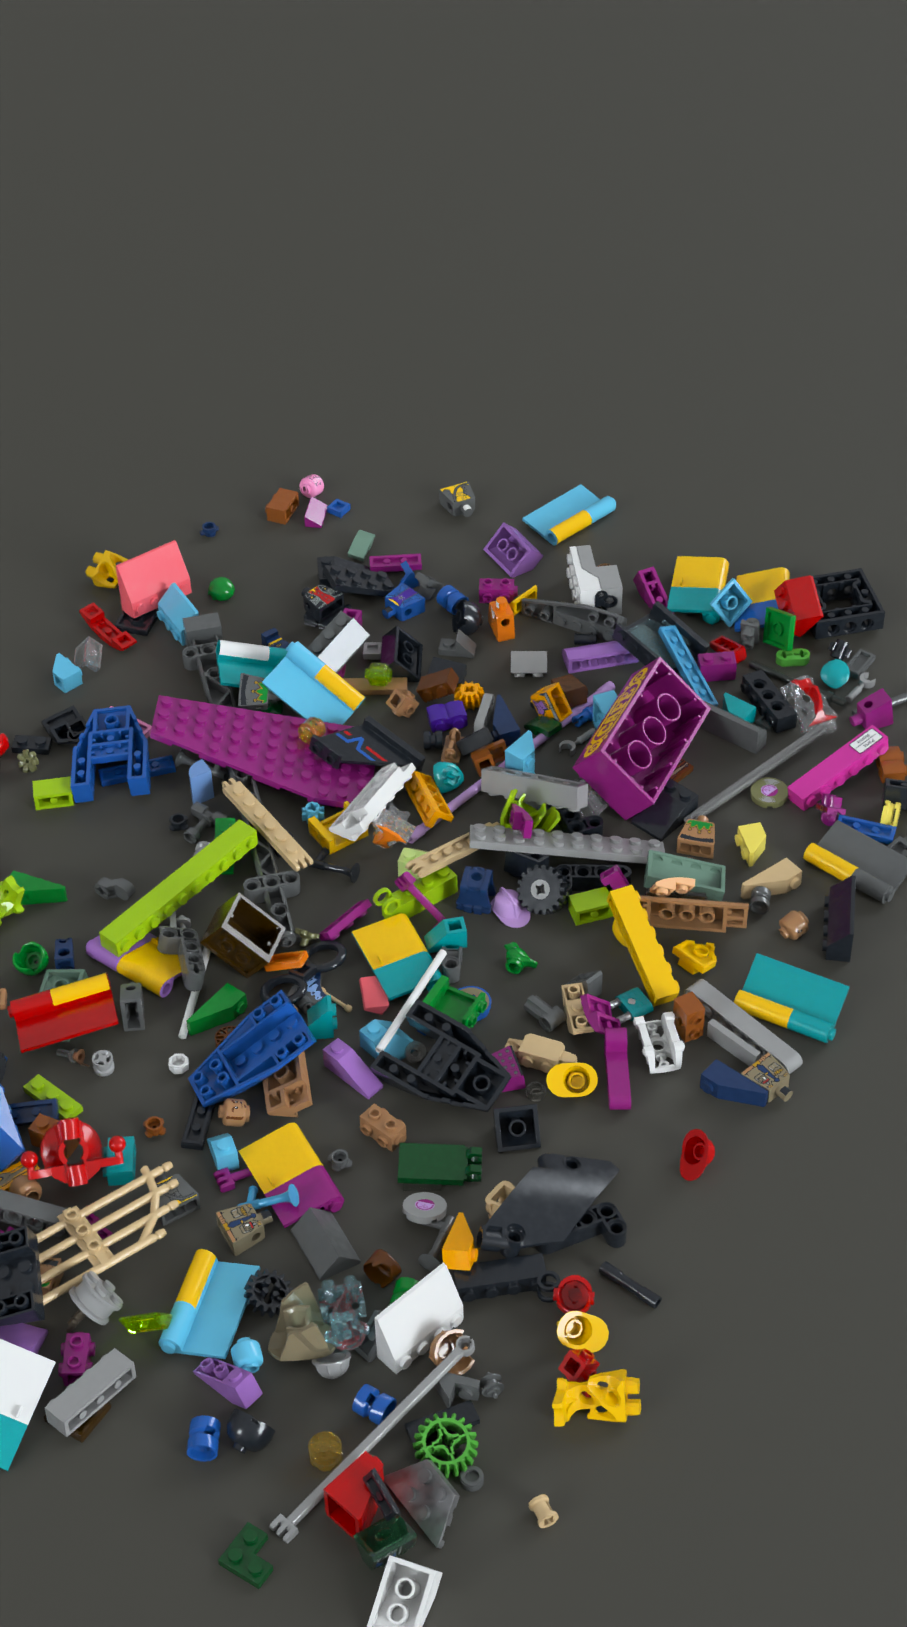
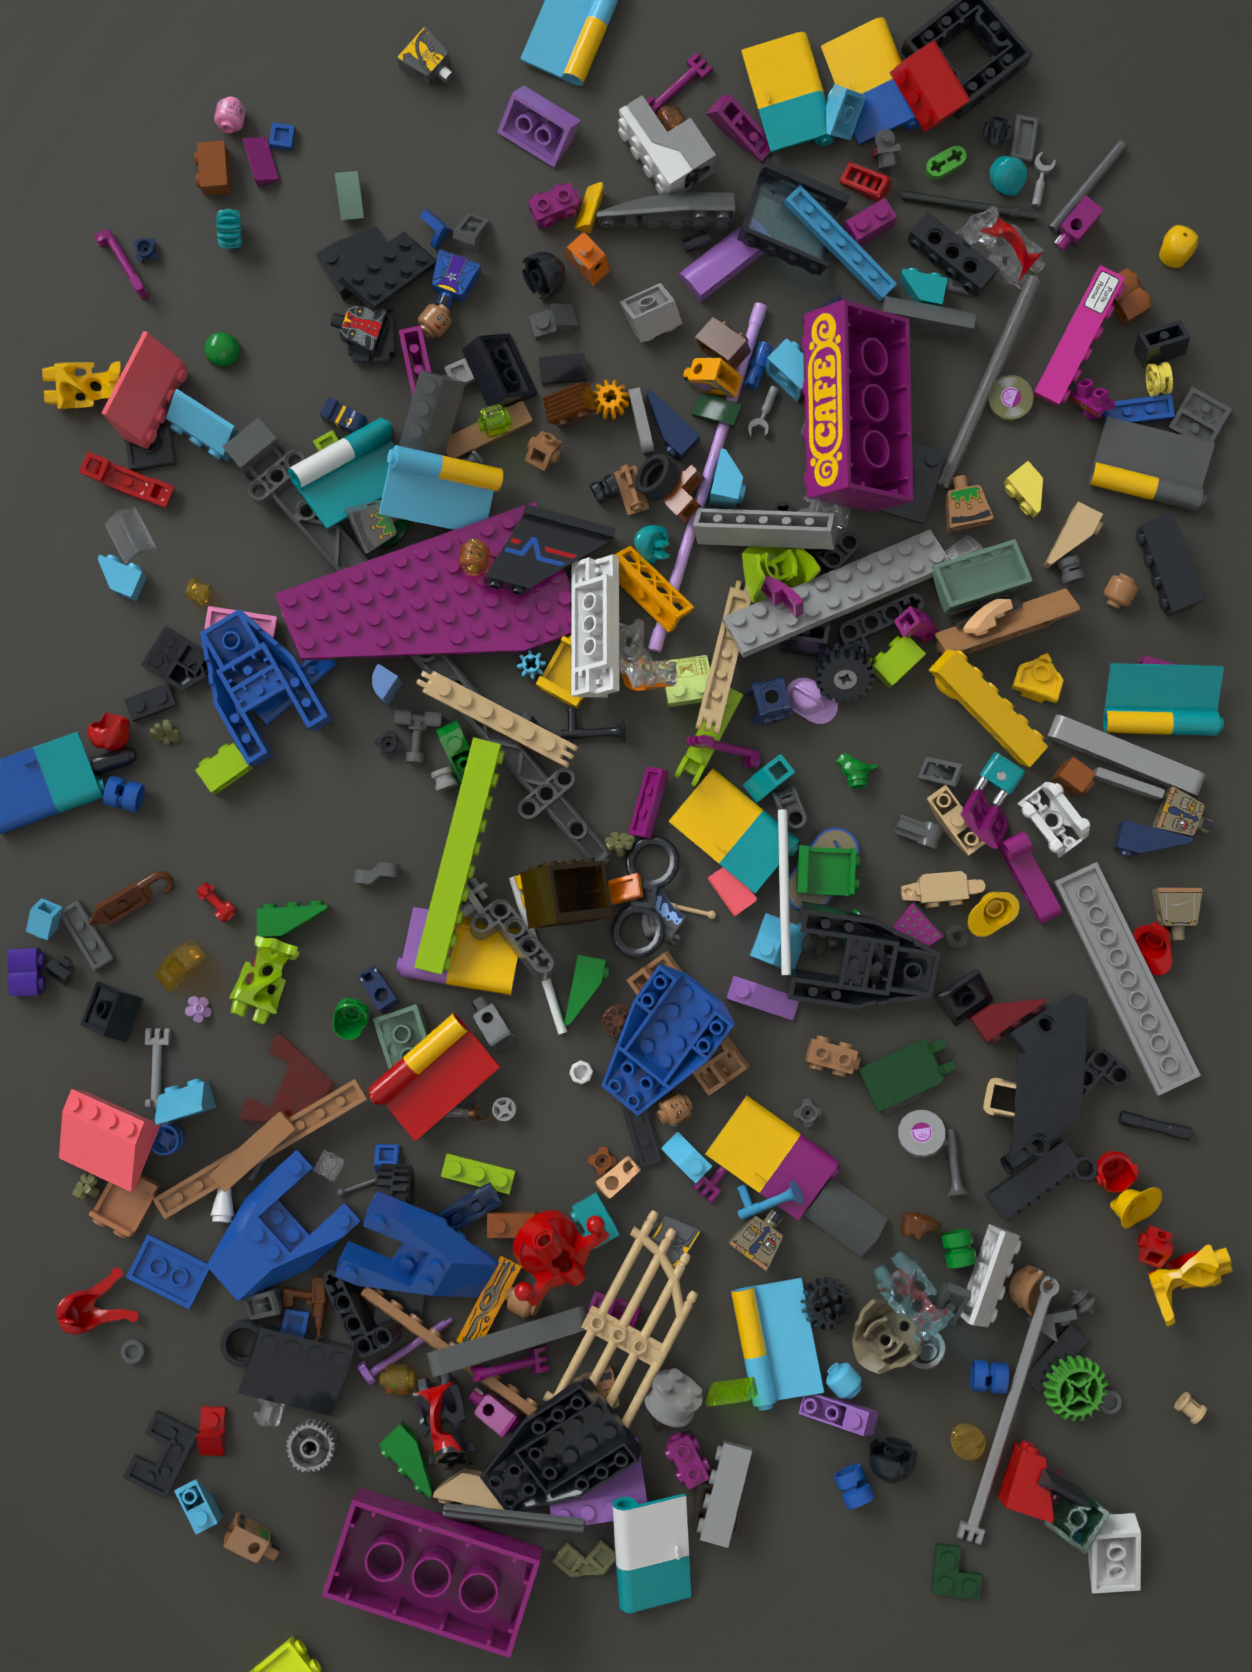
camera: 25 degrees left, 40 degrees up
(110, 696) = (197, 591): none -> clear yellow wheel
(158, 1139) = (617, 1177): none -> light nougat leg
(188, 517) = (106, 238): none -> magenta hinge
(270, 533) = (229, 228): none -> teal gear
(321, 1018) = (700, 954): teal slope -> none
(374, 618) = (435, 320): none -> medium nougat head
(392, 562) = (406, 208): magenta plate -> none
(426, 1497) = (1083, 1447): flat silver wing -> none
(447, 716) = (601, 445): dark purple brick -> none
(448, 598) = (511, 248): blue wheel -> none
(459, 1246) = (987, 1173): light orange slope -> none
(528, 1150) = (996, 1018): none -> dark red slope
(642, 559) = (695, 69): none -> magenta hinge
(662, 1174) = (1127, 979): none -> light grey plate
(732, 1138) = (1177, 908): none -> dark tan torso
(779, 628) = (921, 135): green plate -> none

